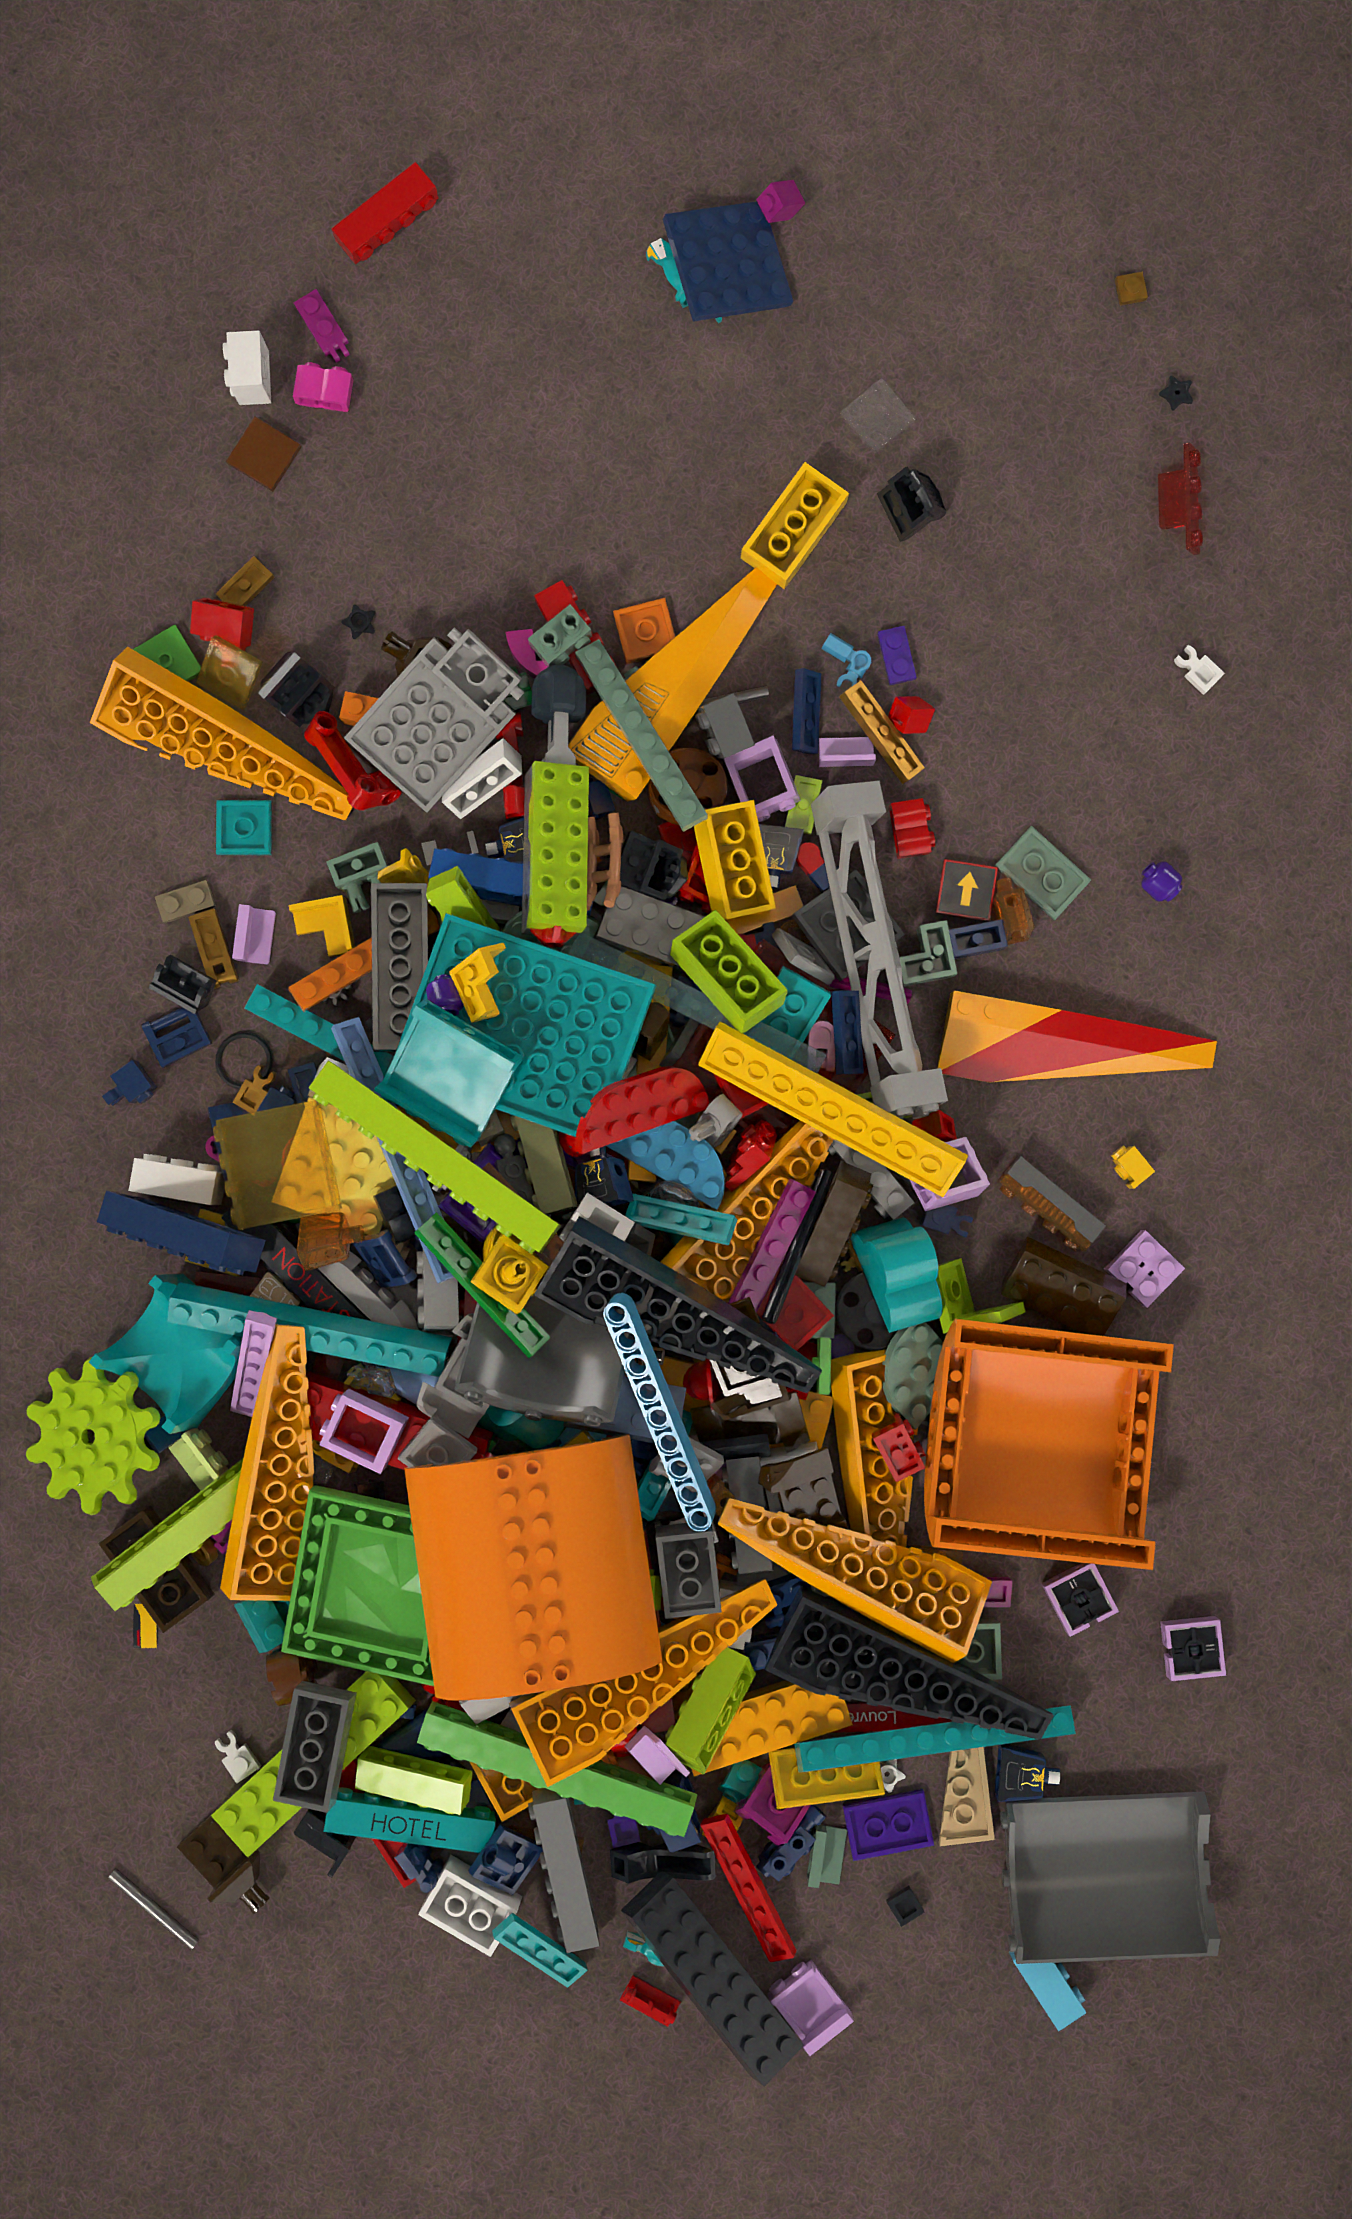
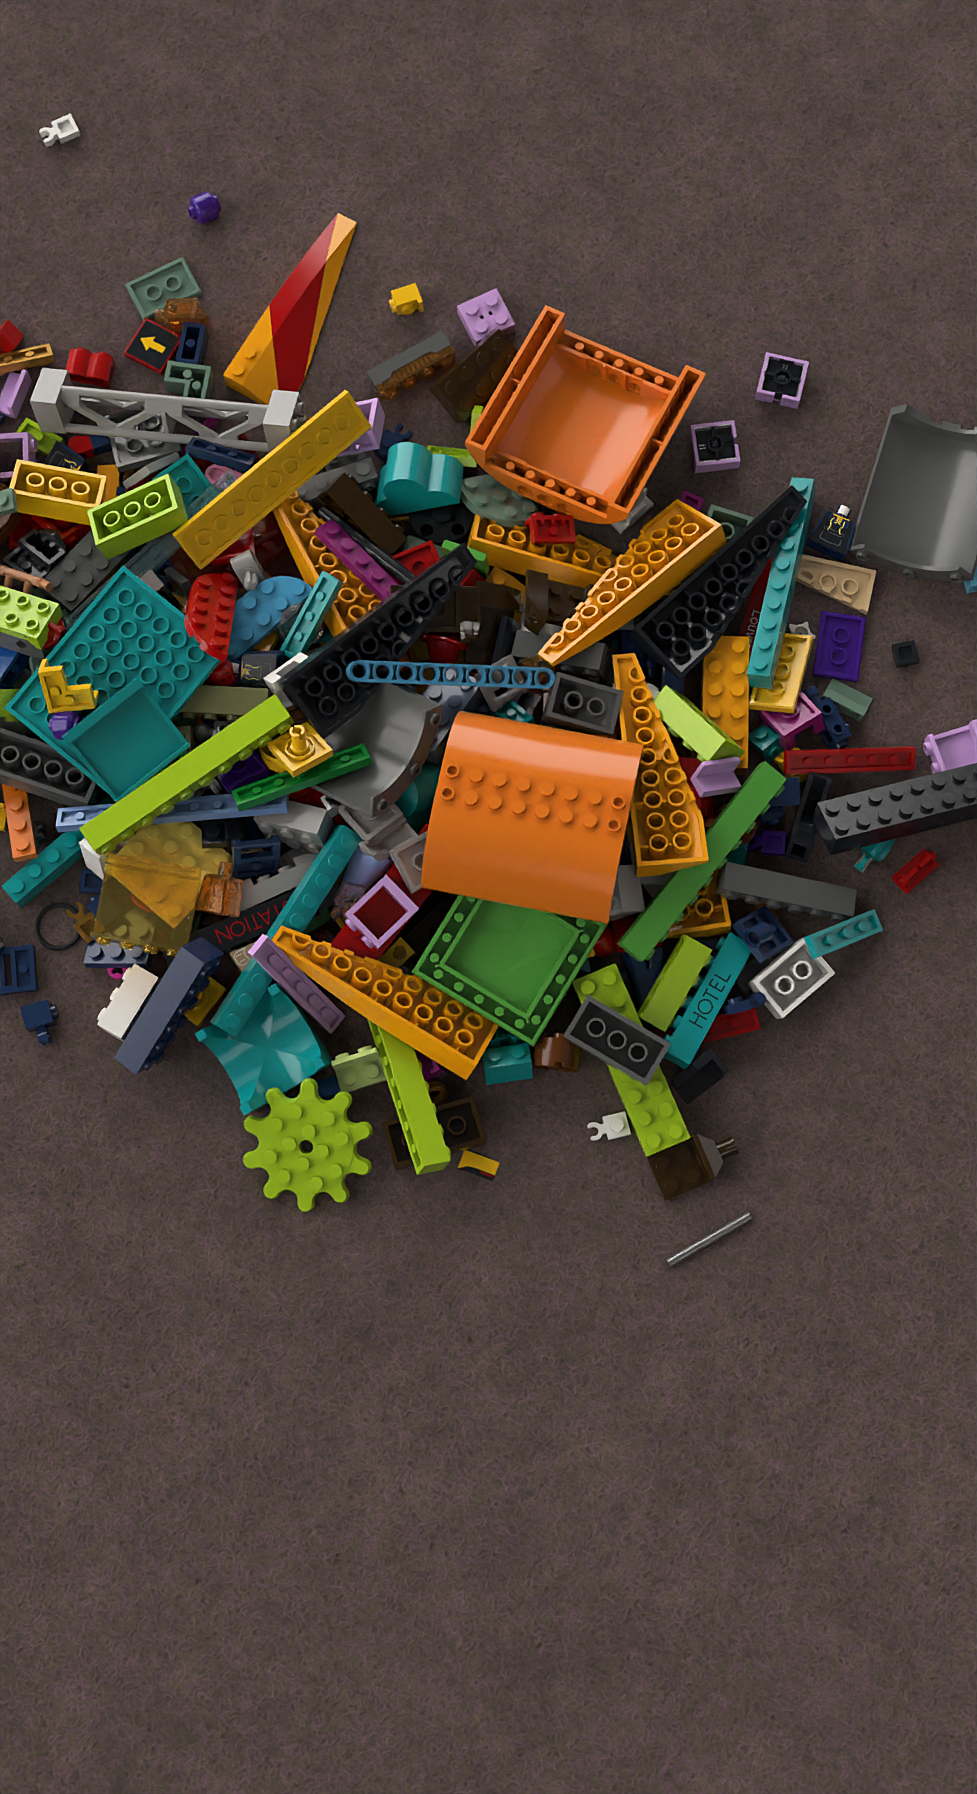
camera: 65 degrees left, 10 degrees down
(751, 1153) = (283, 551): red plate -> none

